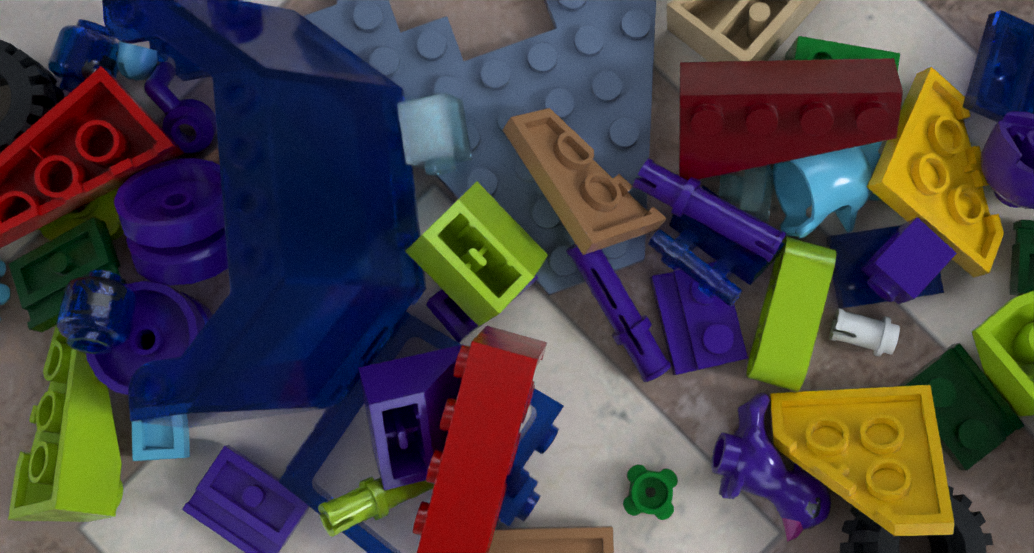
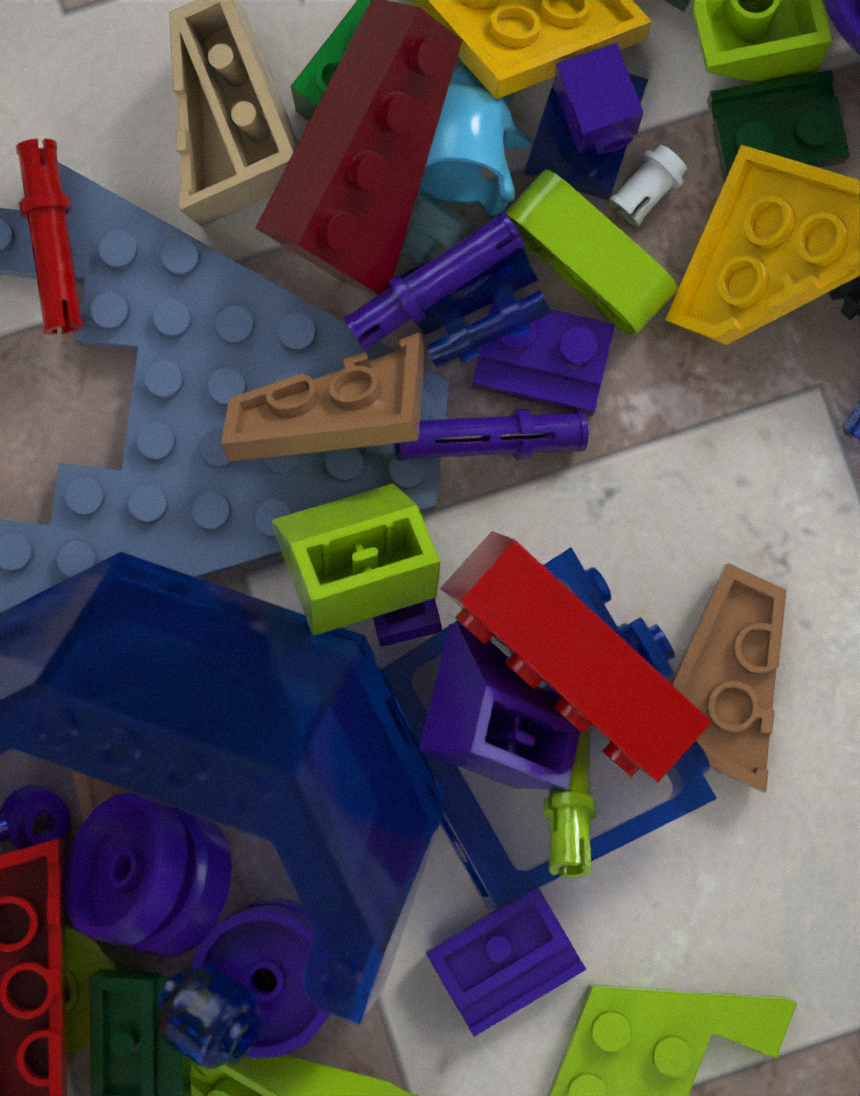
camera: 65 degrees left, 0 degrees up
(159, 442) = (380, 1031): medium azure plate -> none
(434, 133) = (193, 540): clear light blue brick -> none
(660, 503) = (707, 486): green plate -> none
(755, 466) = (735, 375): dark purple animal -> none

